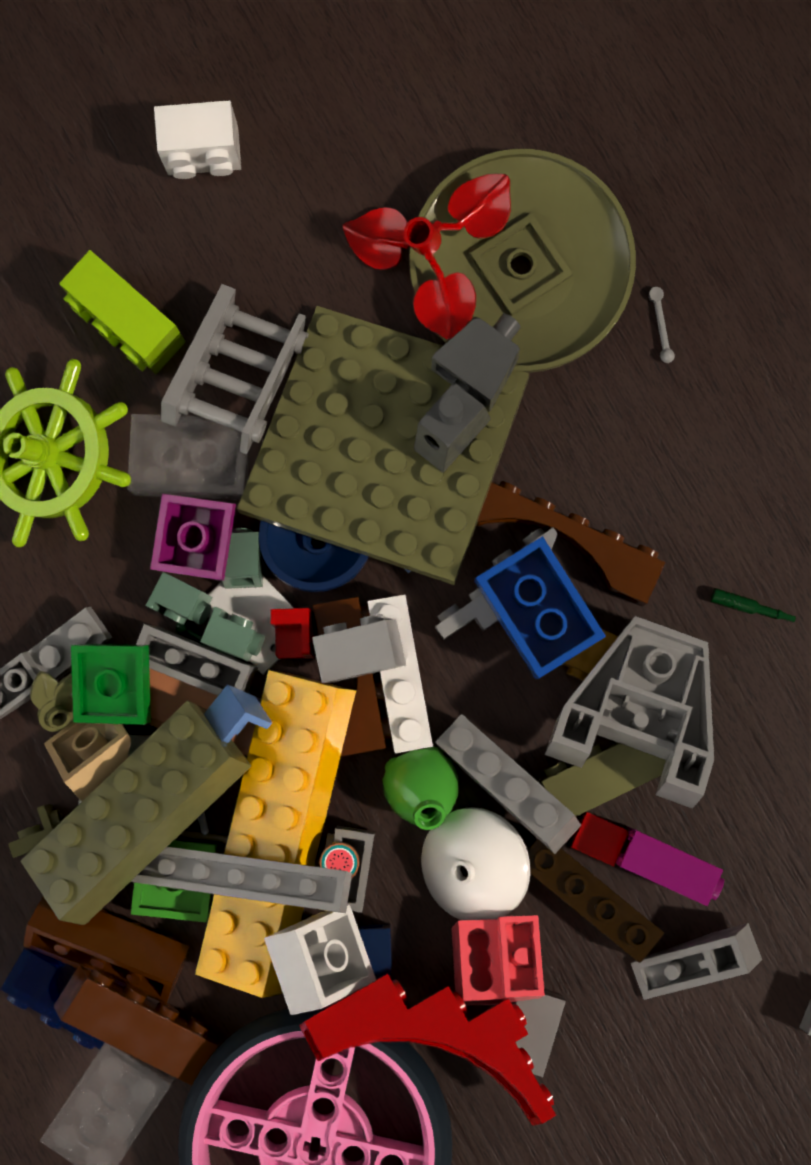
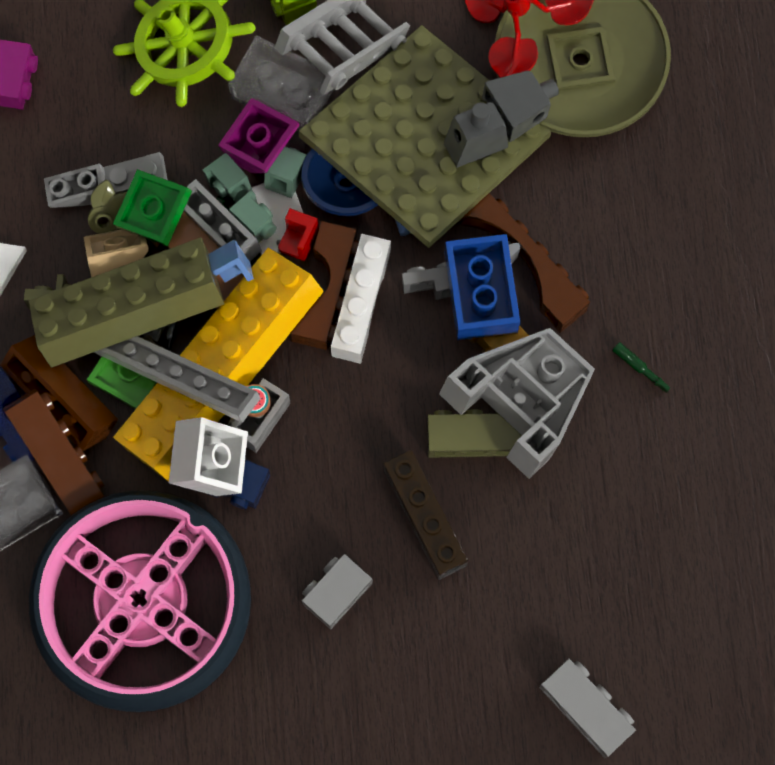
camera: 20 degrees right, 10 degrees down
(358, 650) = (339, 259): light grey brick -> none
(421, 786) = (341, 371): bright green piece -> none
(439, 1021) = (272, 541): red arch -> none
(491, 854) = (361, 464): white dish -> none
(497, 960) = (335, 526): coral piece -> none
(508, 784) = (403, 403): light grey brick -> none
(598, 838) = (450, 477): red panel -> none
(655, 296) = (669, 123): light grey hinge -> none
(670, 867) = (492, 515): magenta brick -> none
(698, 962) = (484, 599): light grey slope -> none

